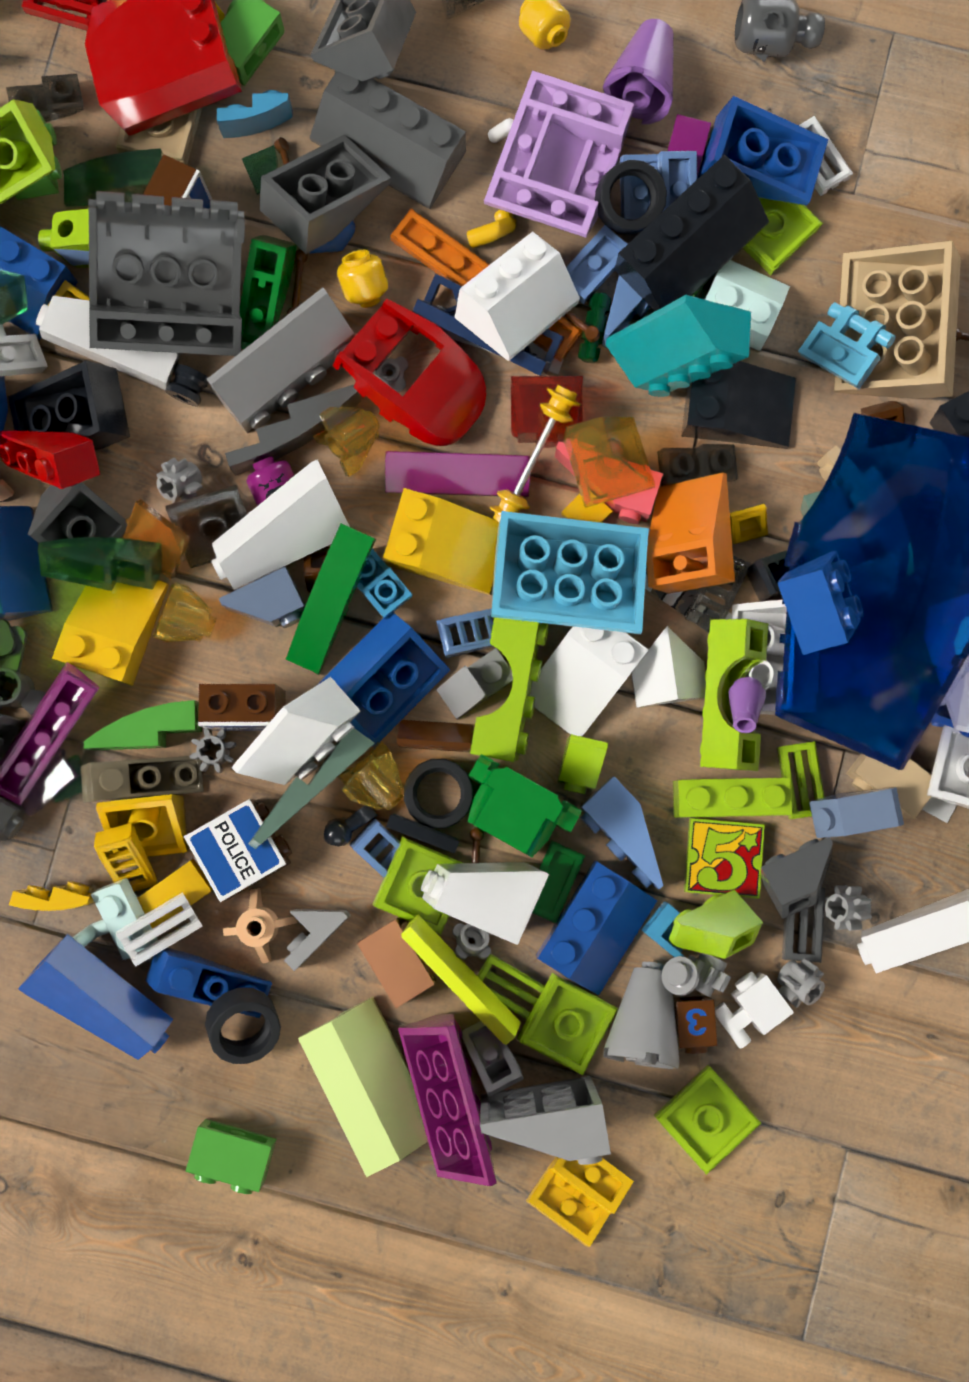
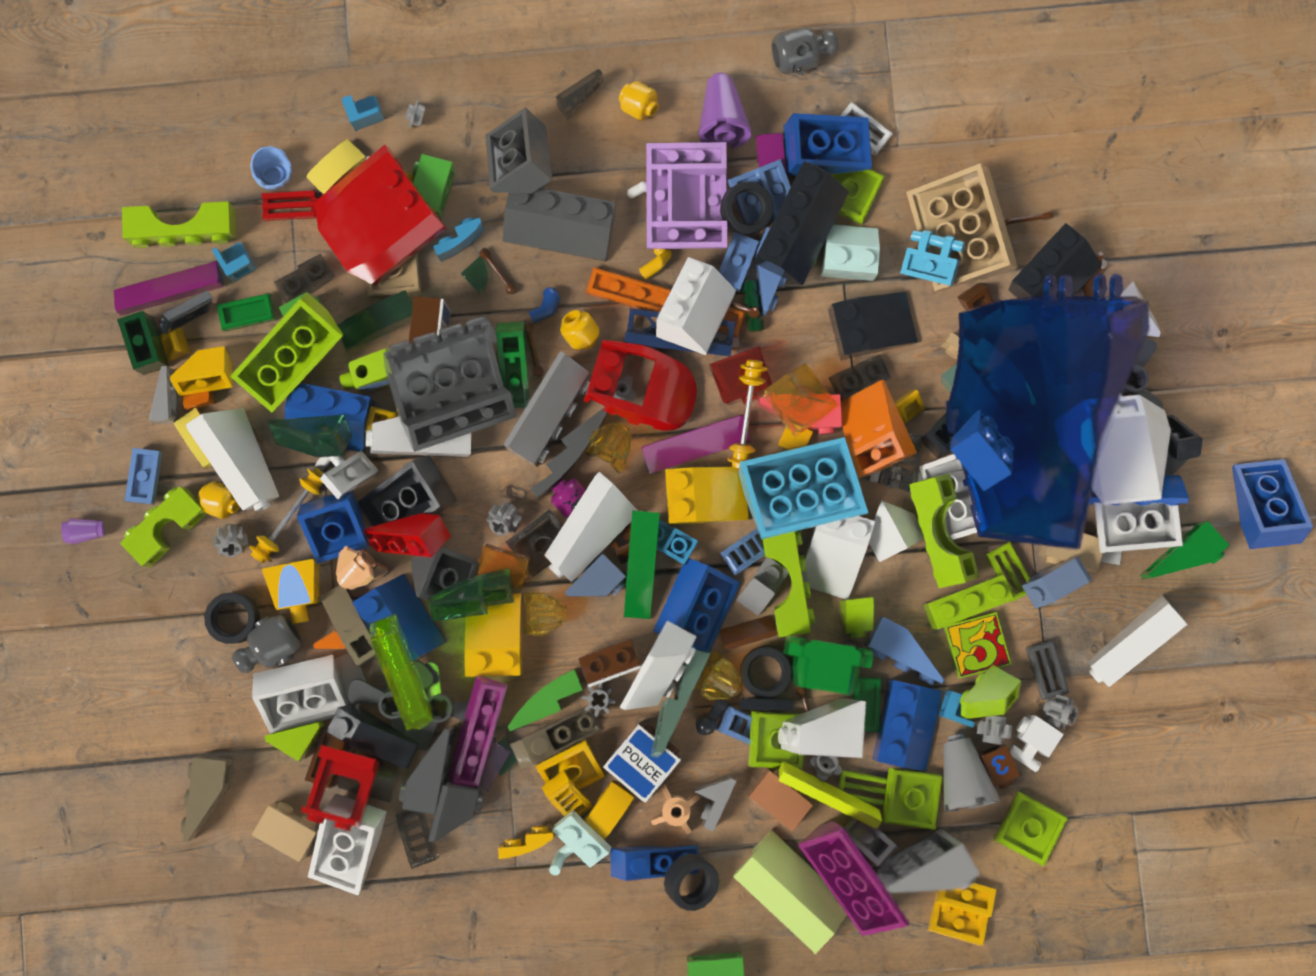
camera: 25 degrees left, 0 degrees up
(97, 999) = (583, 901): blue slope -> none
(166, 941) = (618, 842): white tile -> none
(187, 385) = (483, 449): black wheel -> none
(321, 192) = (530, 280): dark grey slope -> none
(680, 976) = (978, 737): light grey plate -> none
(681, 344) = (824, 305): teal slope -> none
(746, 703) = (955, 534): medium lavender cone -> none
(797, 878) = (1033, 641): dark grey slope -> none
(848, 907) = (1074, 648): light grey gear -> none

